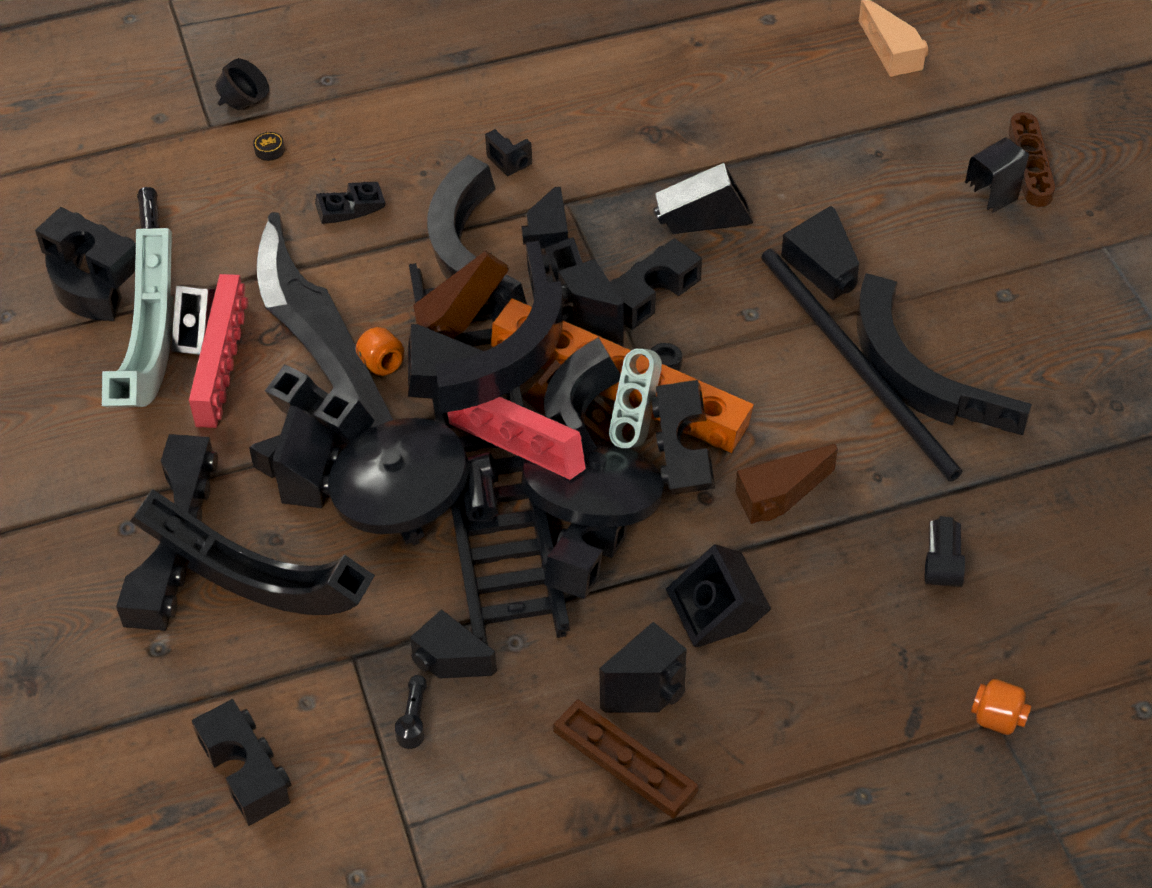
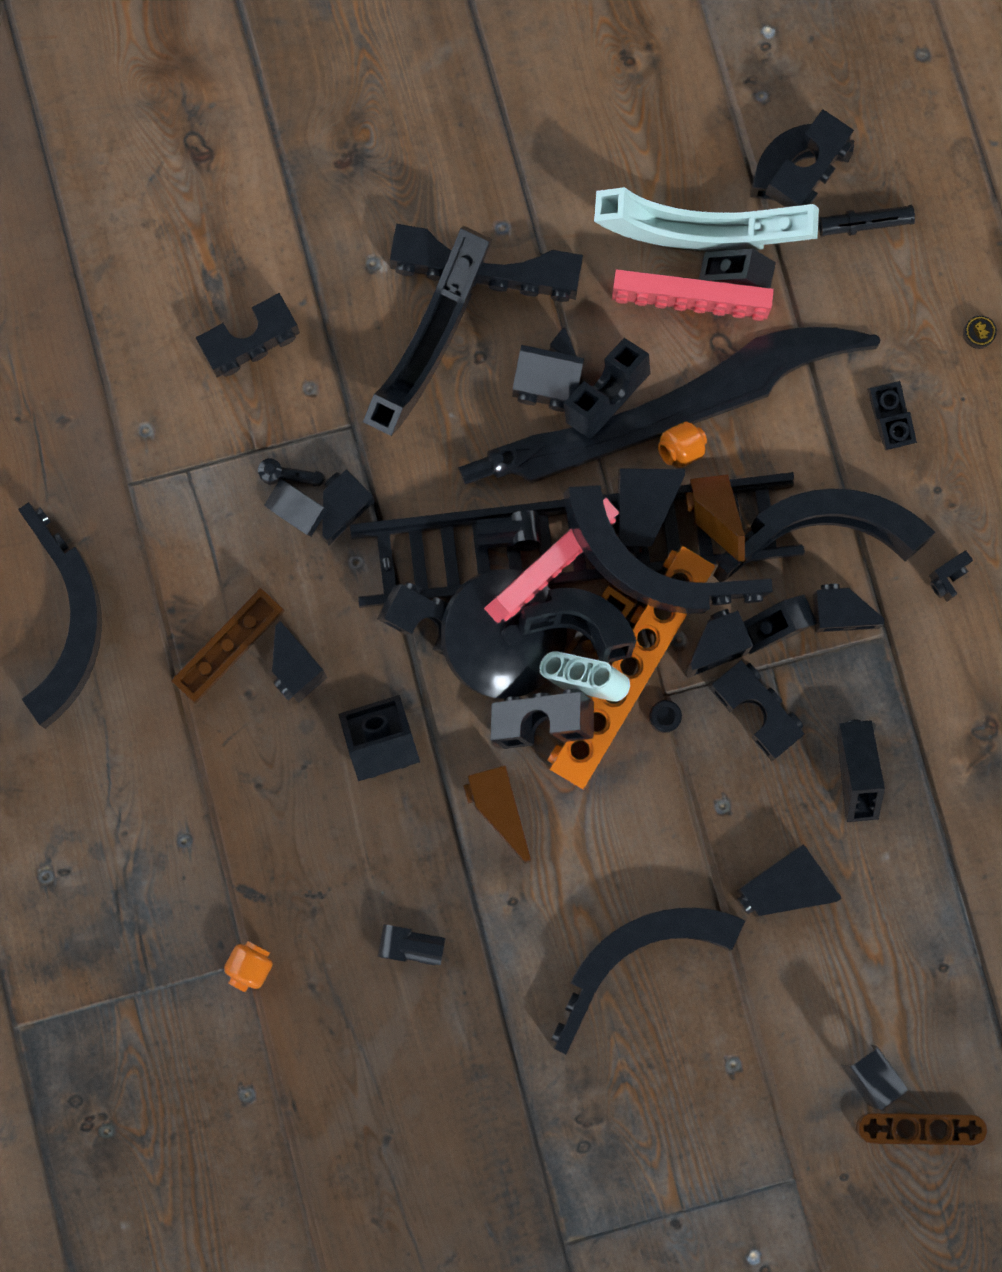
camera: 90 degrees right, 30 degrees up
(398, 476) = (519, 459): black dish -> none
(454, 691) = (295, 507): none -> black slope
(862, 366) = (650, 901): black piece -> none

